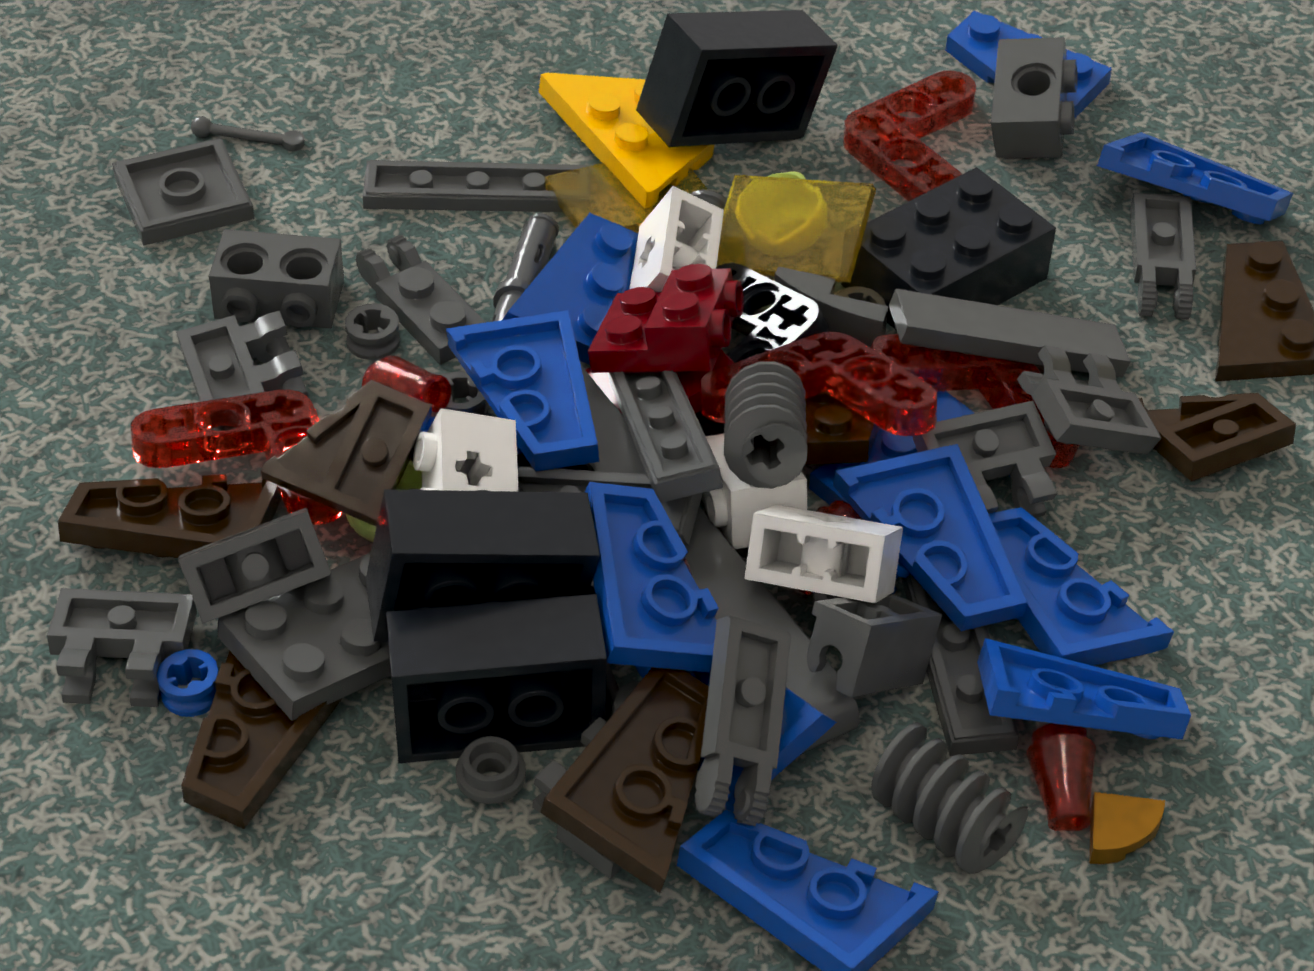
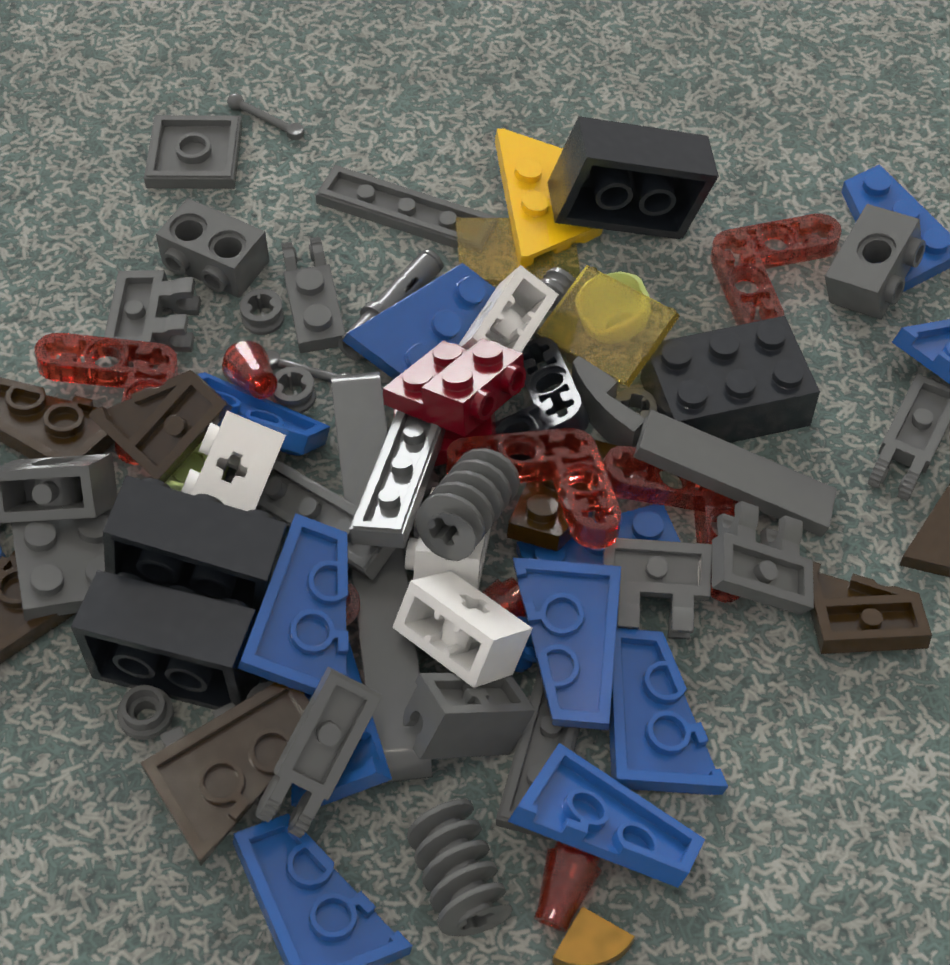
camera: 25 degrees right, 10 degrees up
(532, 376) = (330, 404): blue wing -> none

